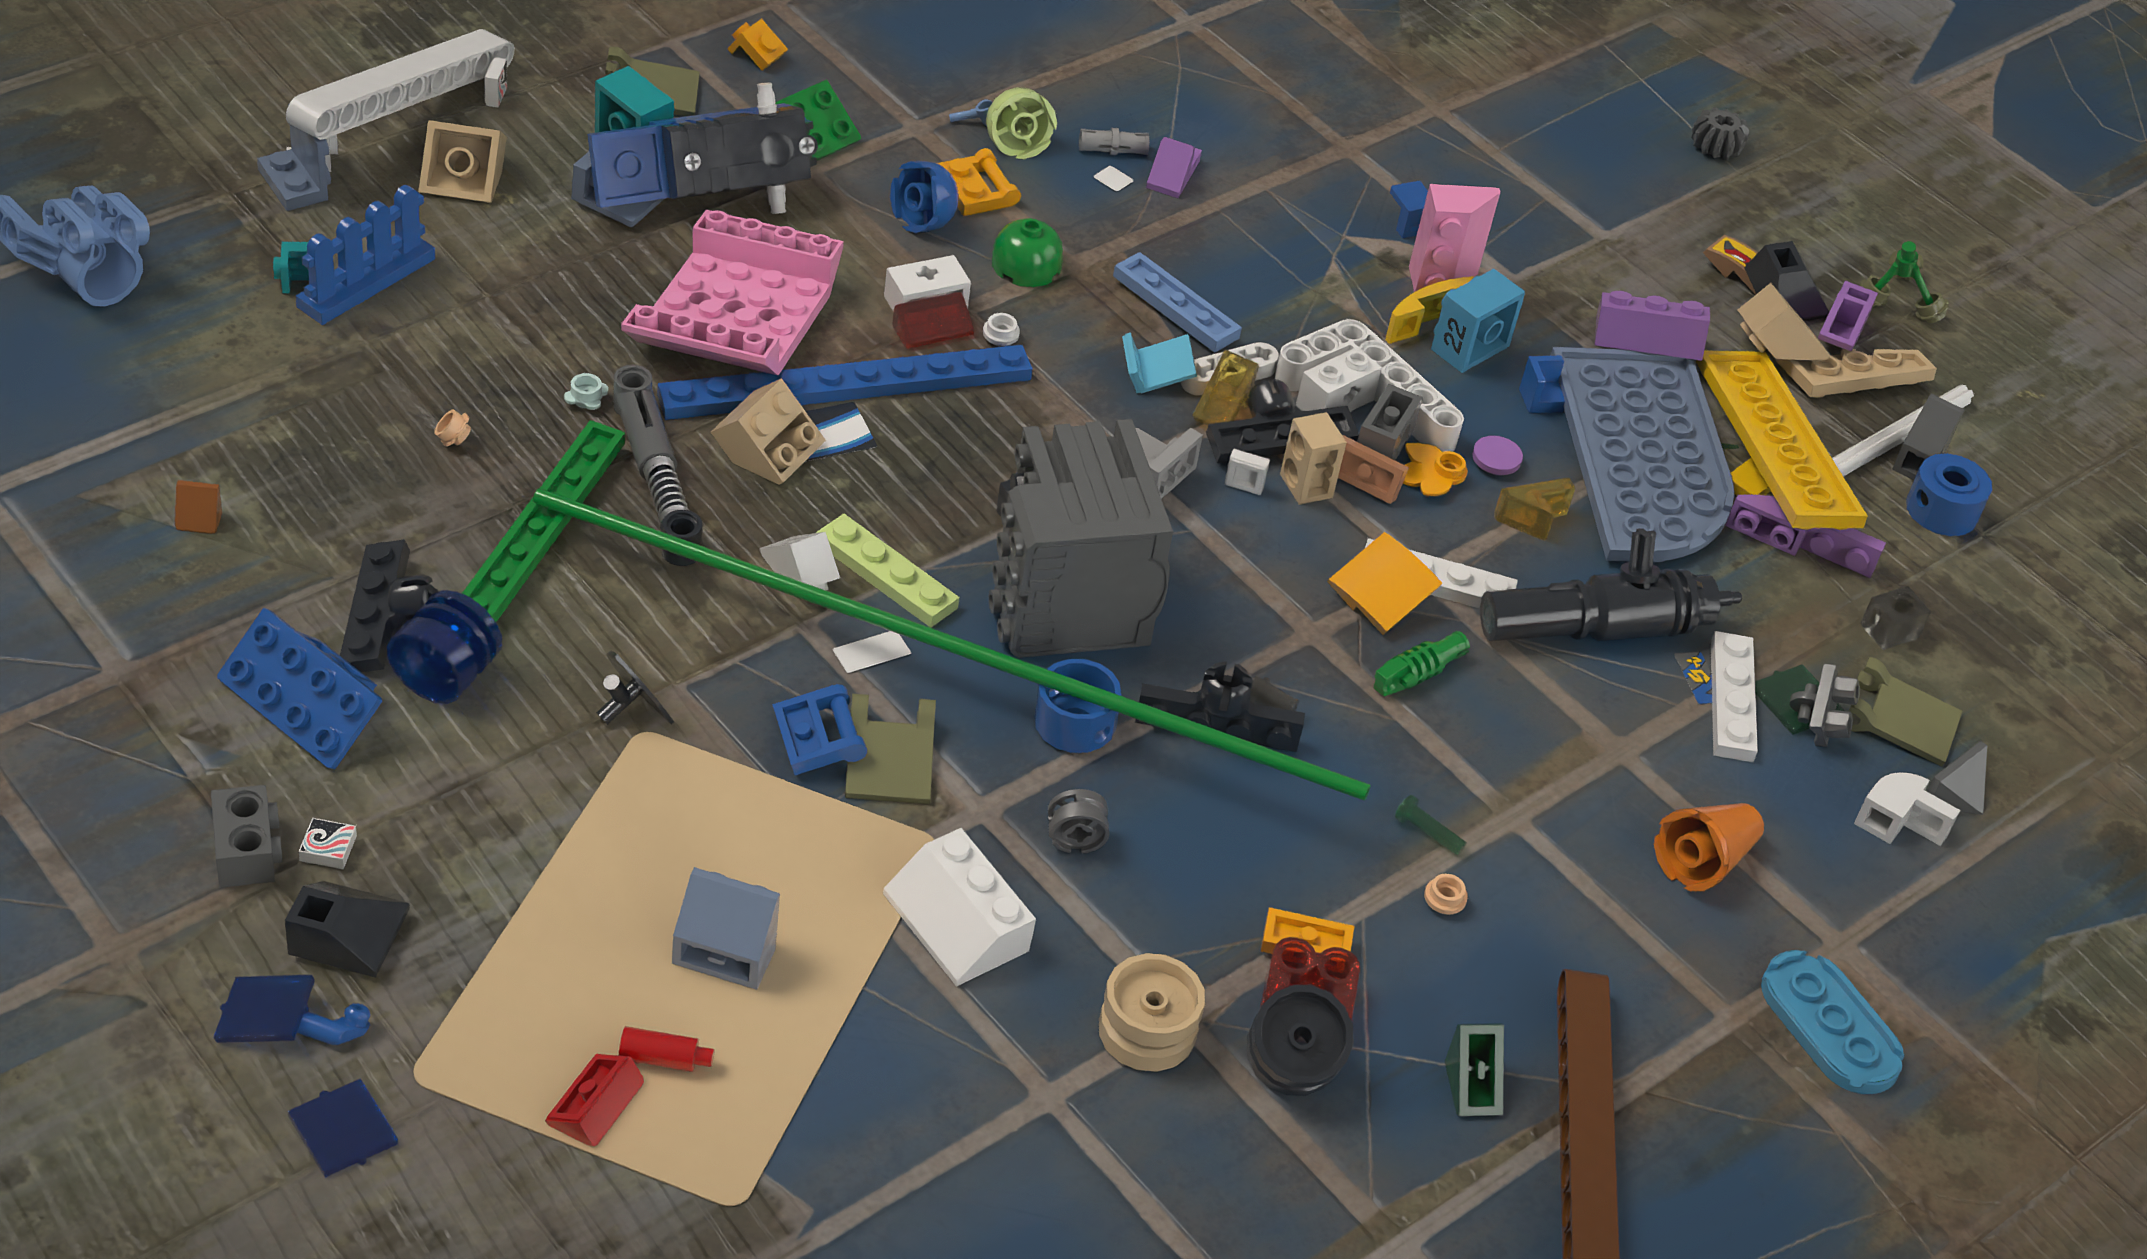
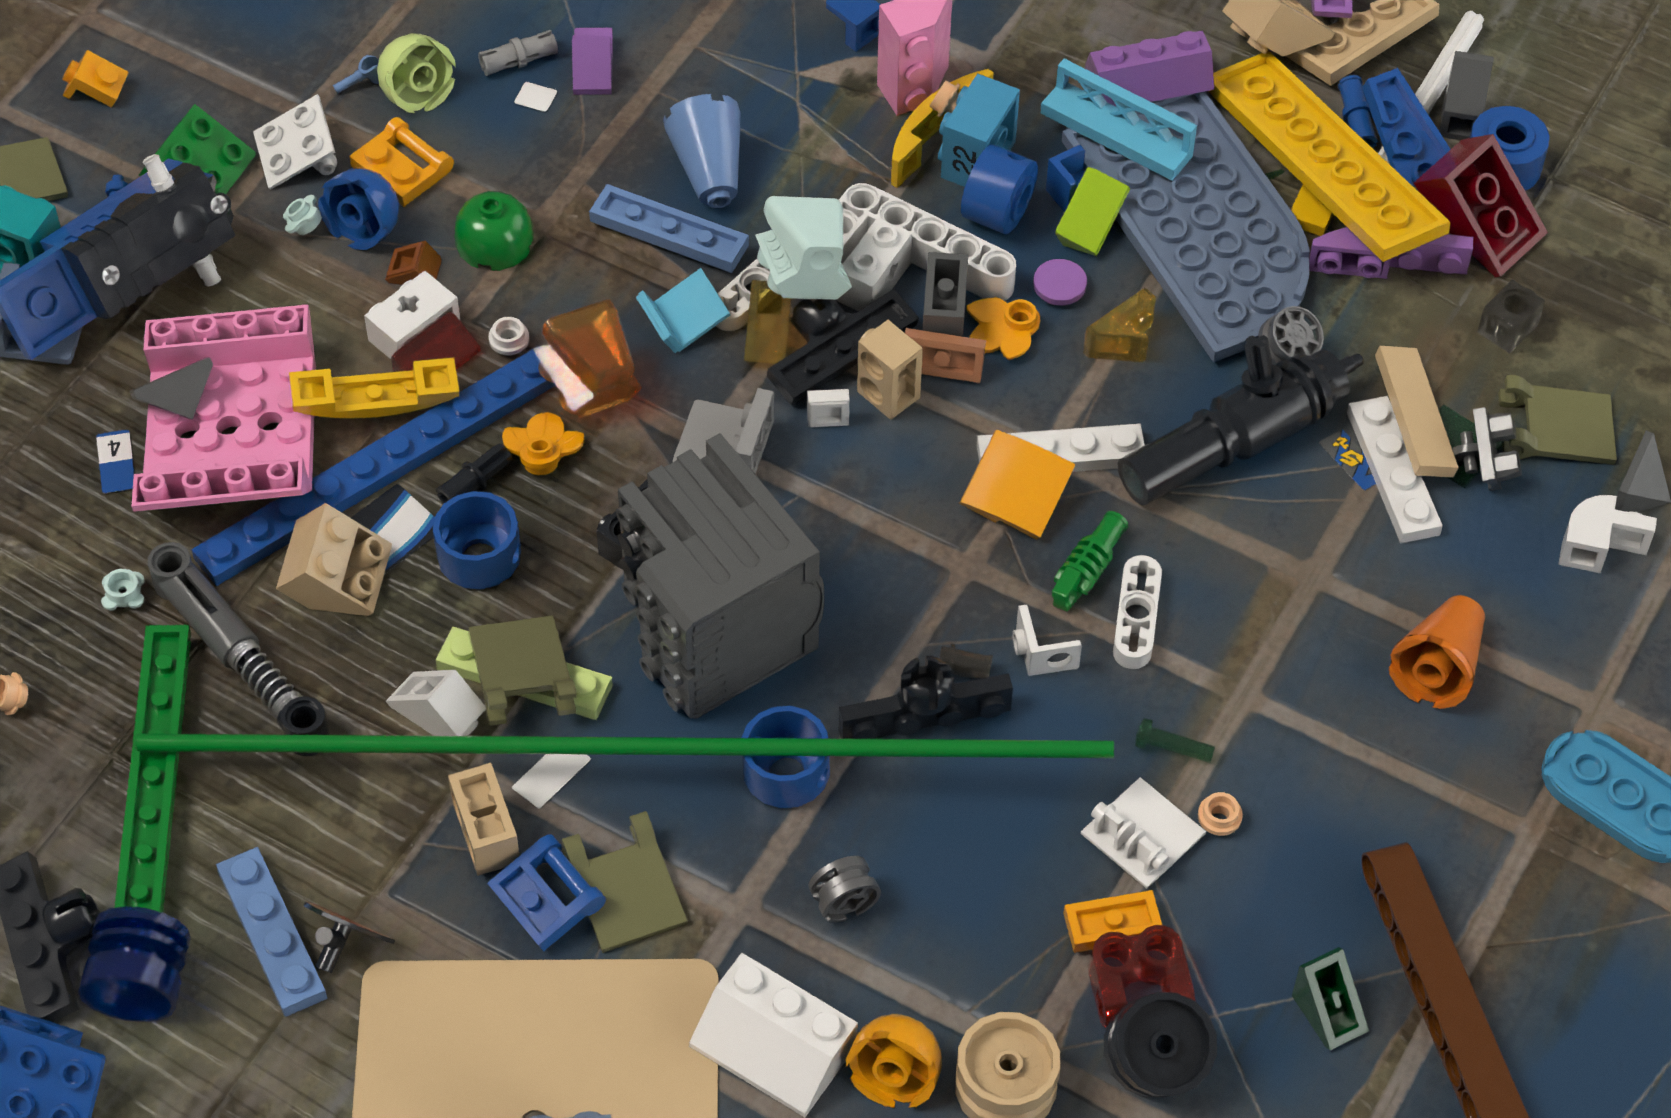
camera: 15 degrees left, 10 degrees up
(573, 676) = (271, 932): none -> medium blue plate
(630, 296) = (115, 461): none -> sticker
(704, 264) = (177, 391): none -> dark grey slope
(793, 652) = (484, 818): none -> tan brick
(866, 328) = (374, 394): none -> yellow slope
(875, 189) = (302, 215): none -> light aqua plate
(885, 554) = (521, 660): none -> olive flag
(897, 138) = (296, 143): none -> white hinge
(899, 460) = (474, 520): none -> blue piece
(919, 416) = (475, 474): none -> black axle
(958, 247) = (411, 261): none -> dark orange slope
(989, 414) = (542, 442): none -> light orange plate
(1055, 965) = (895, 1061): none -> light orange cylinder
(1057, 361) = (588, 359): none -> clear orange piece
(1239, 250) = (707, 145): none -> medium blue cone
(1280, 336) = (804, 247): none -> light aqua piece
(1340, 712) = (1037, 656): none -> white bracket
(1367, 882) = (1142, 832): none -> white hinge
(1445, 731) = (1144, 627): none -> white beam
(1458, 278) = (945, 98): none -> light nougat plate
(1475, 364) = (999, 189): none -> blue piece
(1549, 410) = (1091, 212): none -> lime slope
(1604, 358) = (1119, 125): none -> medium azure fence
(1685, 552) = (1291, 334): none -> flat silver wheel
(1773, 657) = (1416, 412): none -> tan tile
(1826, 420) = (1356, 109): none -> blue pin
(1867, 460) = (1403, 125): none -> blue wing
(1912, 518) = (1483, 201): none -> dark red slope

